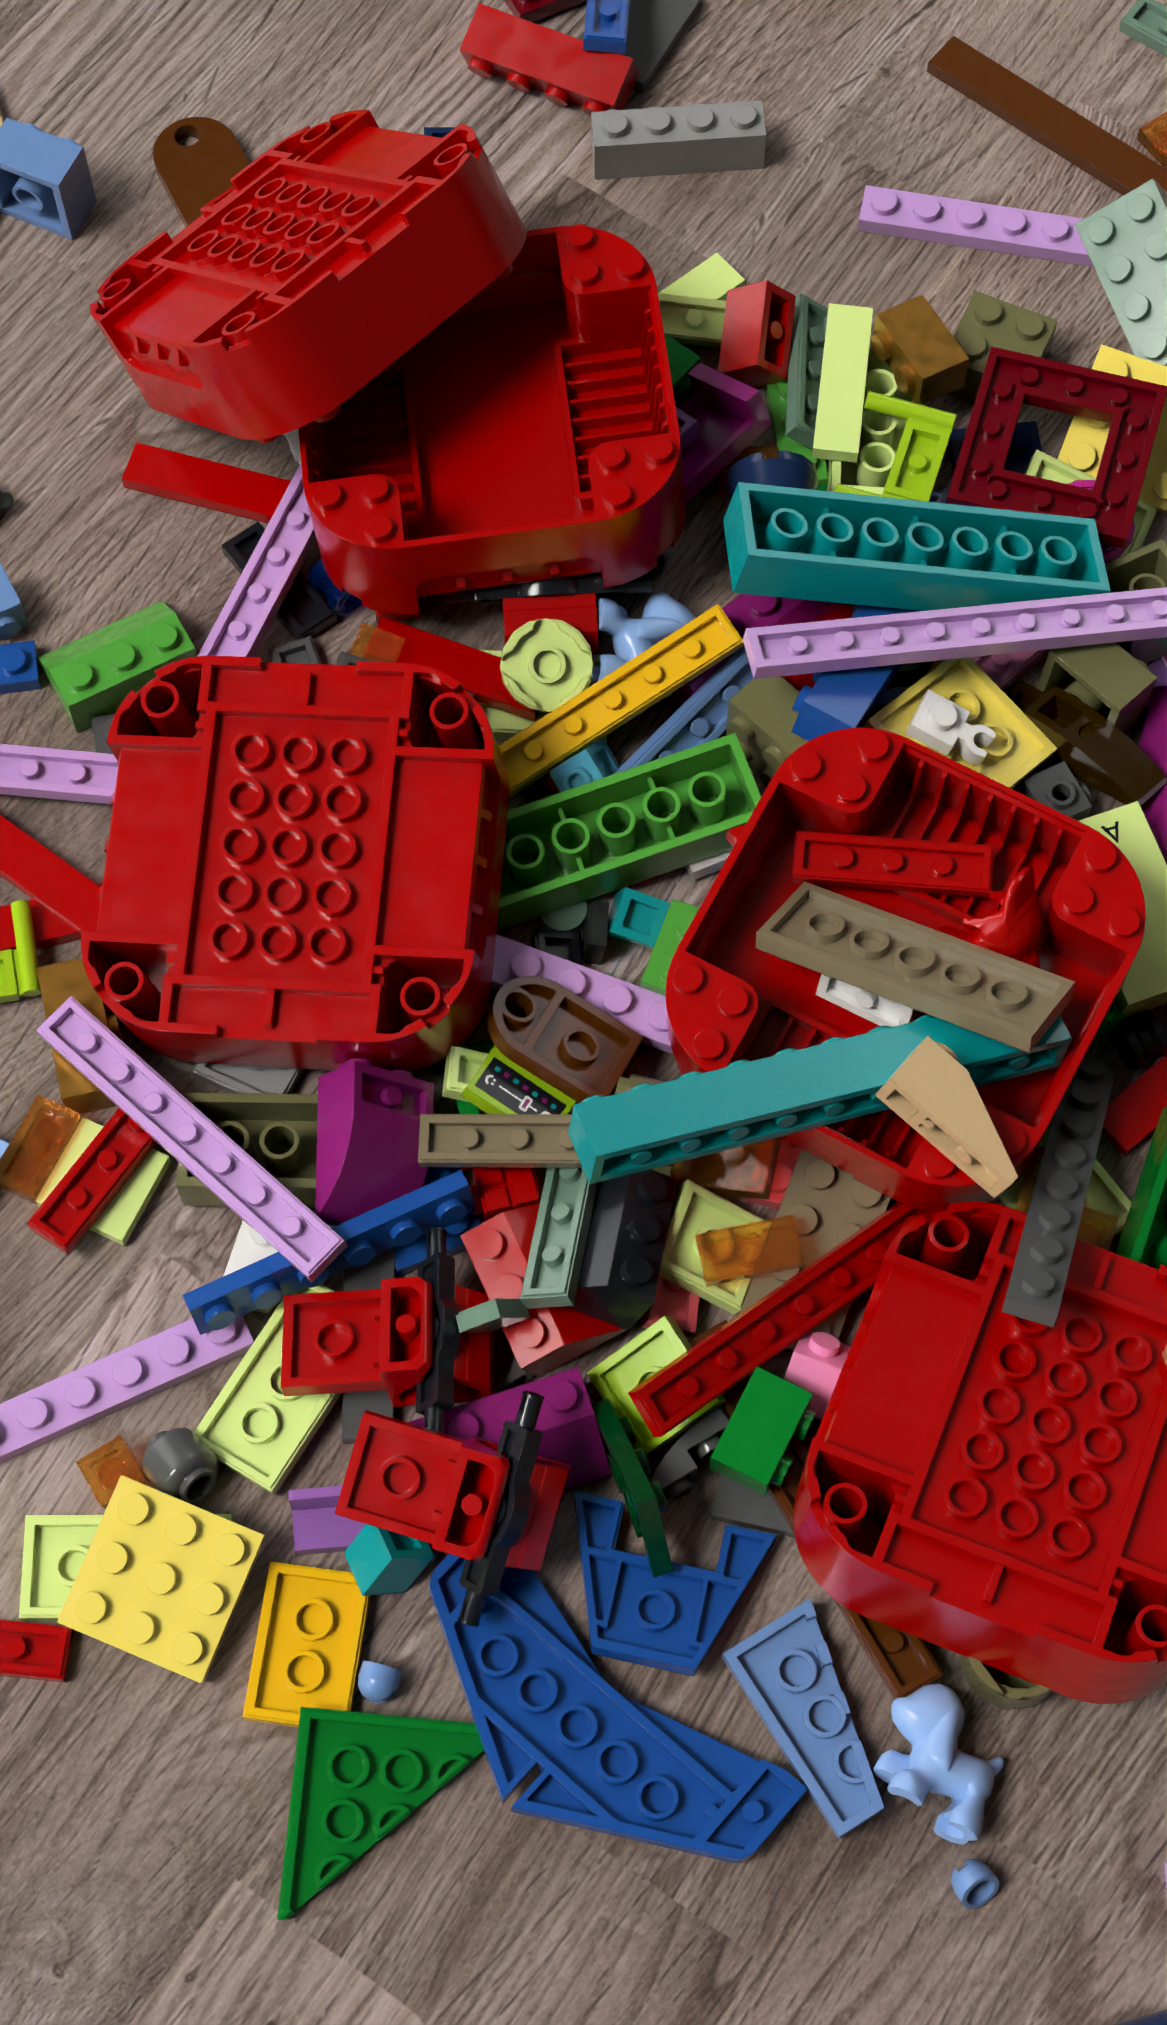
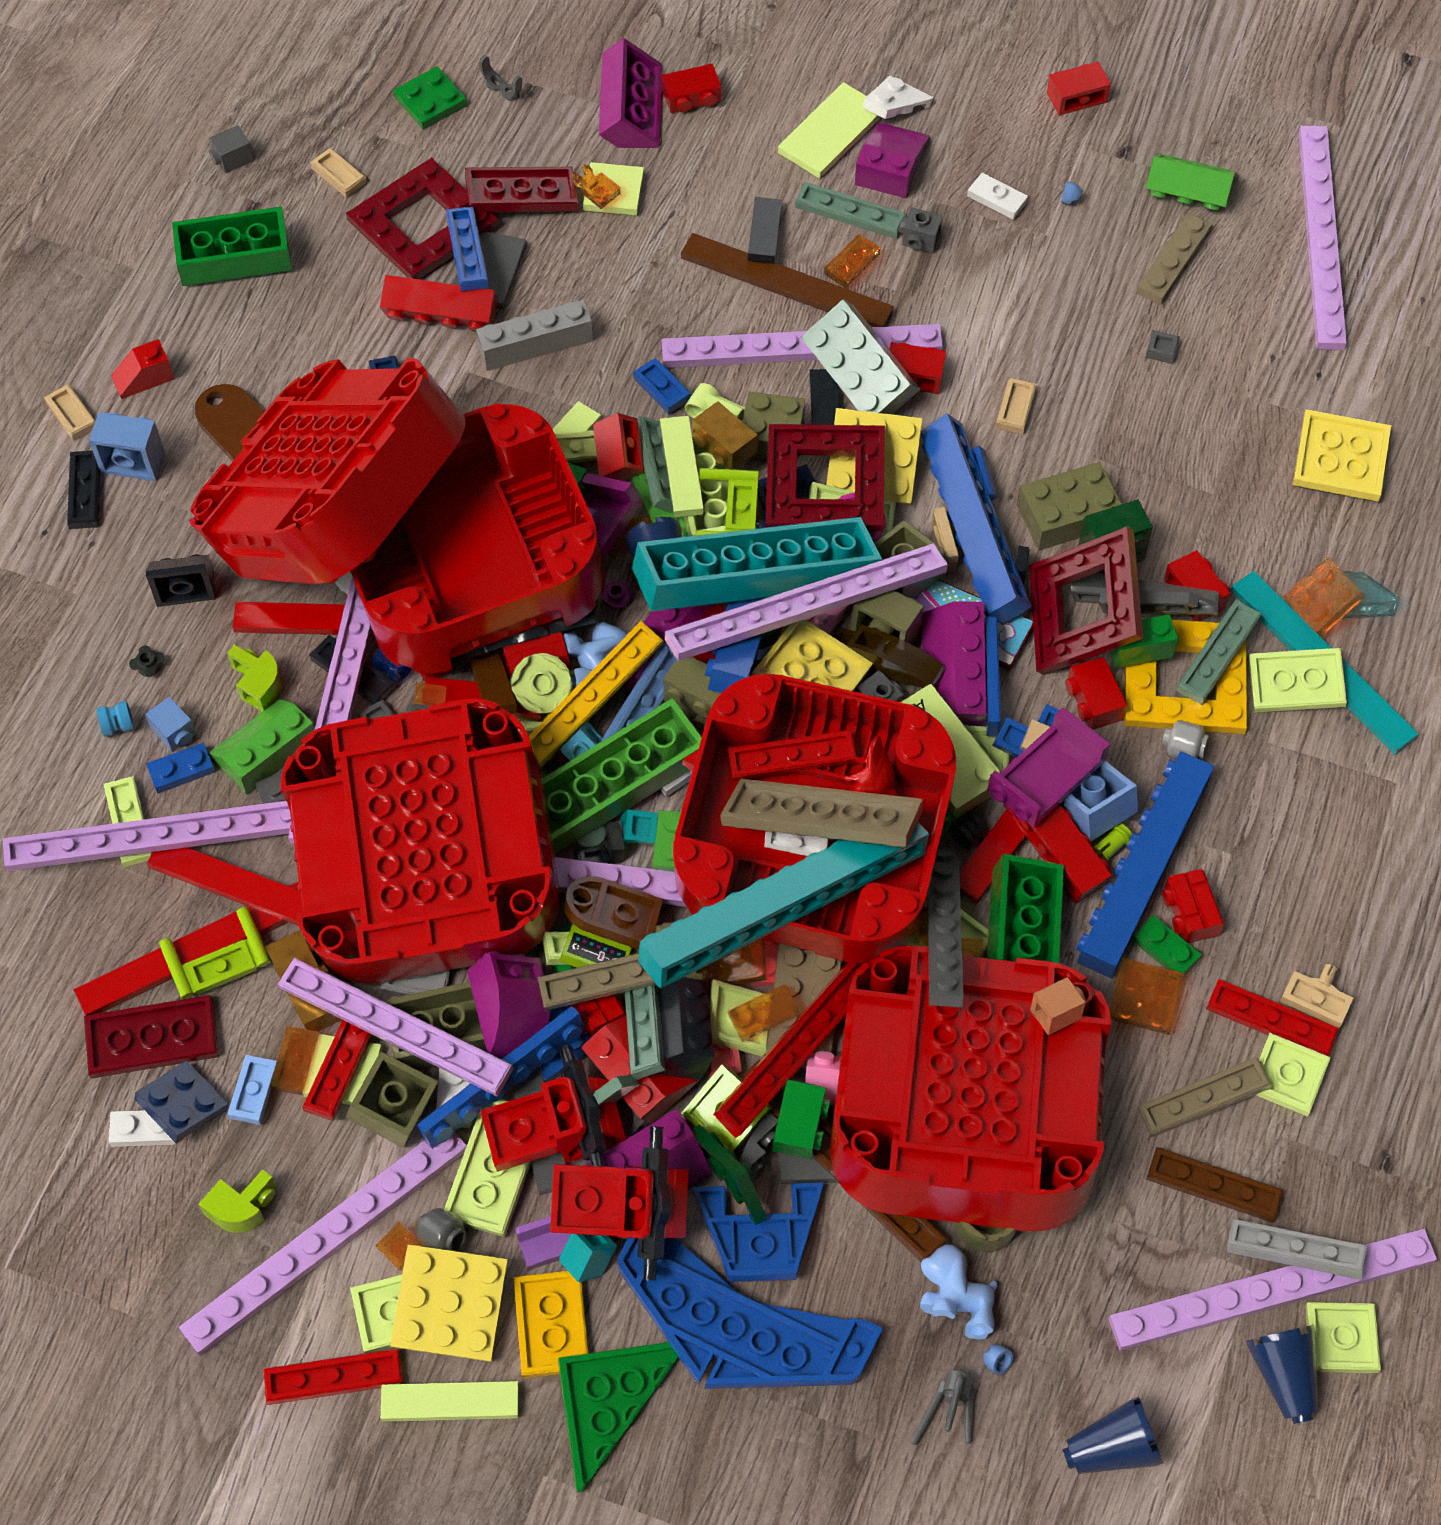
camera: 15 degrees left, 5 degrees down
(65, 392) = (181, 580): none -> black slope
(95, 72) = (142, 369): none -> red slope
(126, 1728) = (449, 1401): none -> yellowish green tile
(142, 566) = (261, 677): none -> lime brick
(159, 1245) = (391, 1099): none -> olive brick
(378, 1681) = (601, 1331): medium blue hinge -> none
(476, 648) = (493, 680): none -> reddish brown tile
(697, 566) = (616, 601): none -> magenta plate
(801, 1703) = (866, 1280): medium blue wing -> none
(847, 256) = (661, 385): none -> blue plate
(897, 1916) = (957, 1390): none -> dark grey plant
(908, 284) = (706, 396): none -> yellowish green piece
(943, 726) = (801, 665): white plate -> none
(945, 1108) = (864, 891): tan slope -> none
(1063, 54) = (764, 230): none -> black tile
(1087, 324) = (823, 397): none -> black tile

